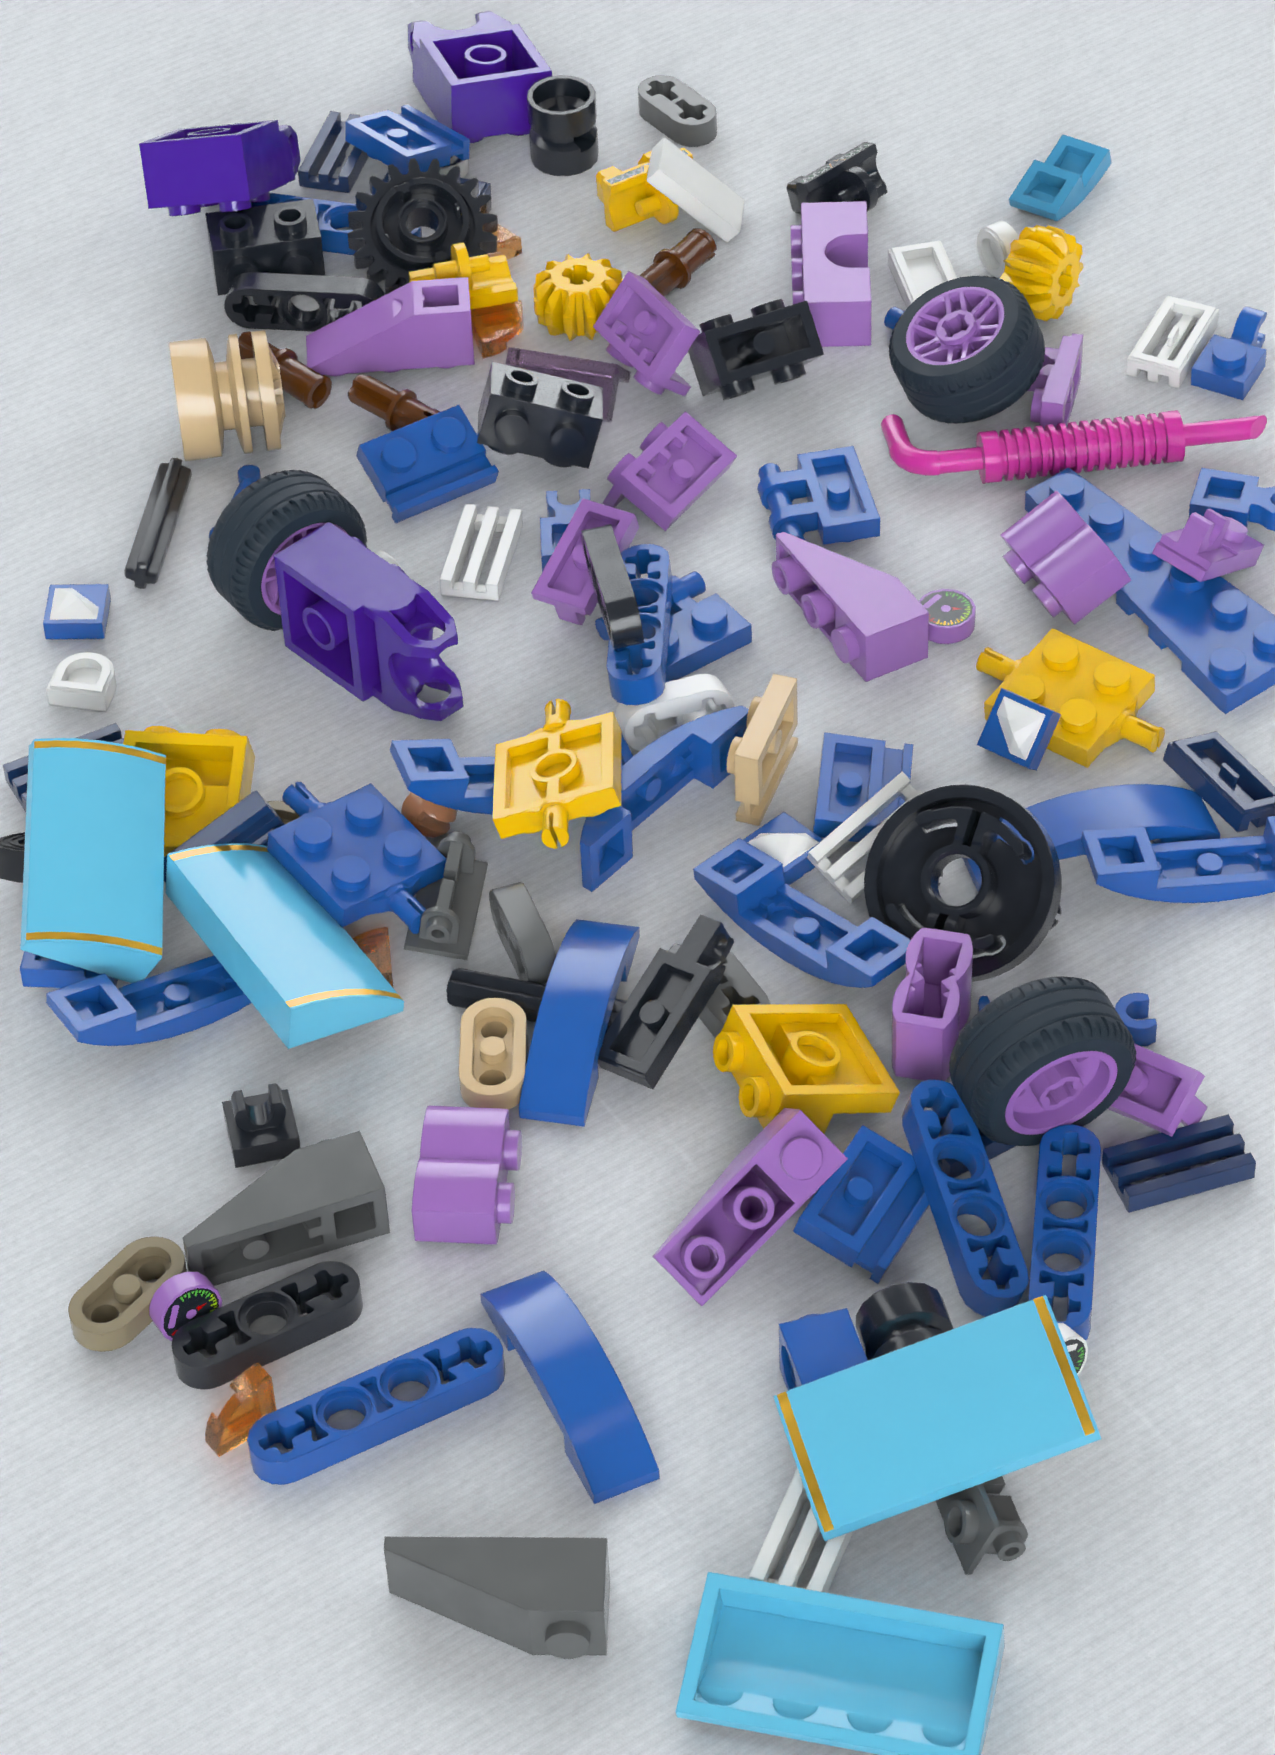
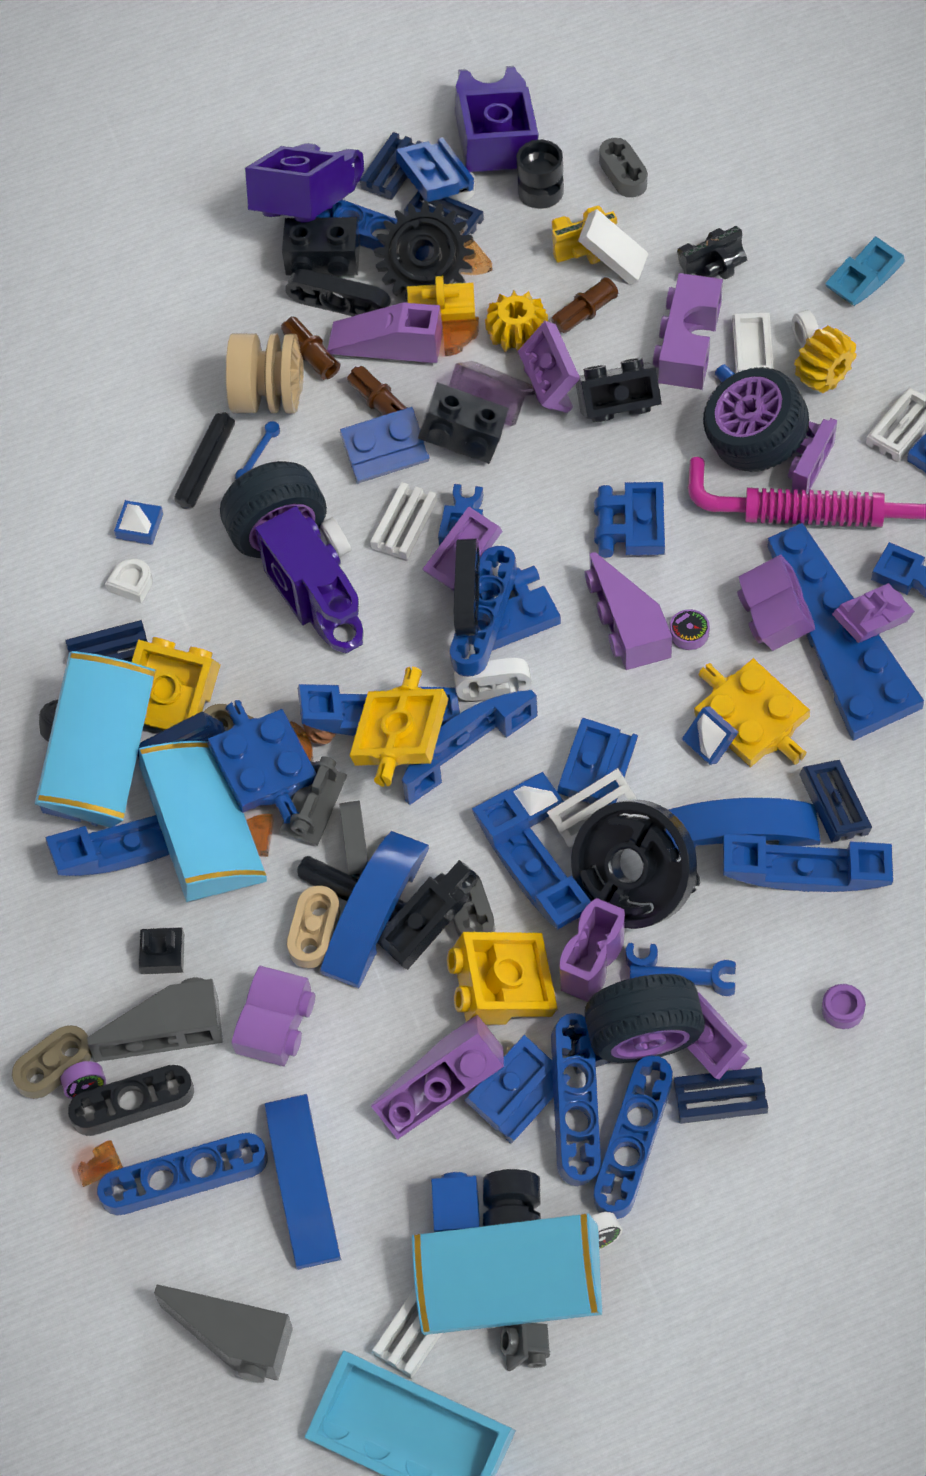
camera: 15 degrees right, 15 degrees up
(671, 471) = (541, 480): medium lavender bracket -> none
(765, 748) = (535, 731): tan plate -> none

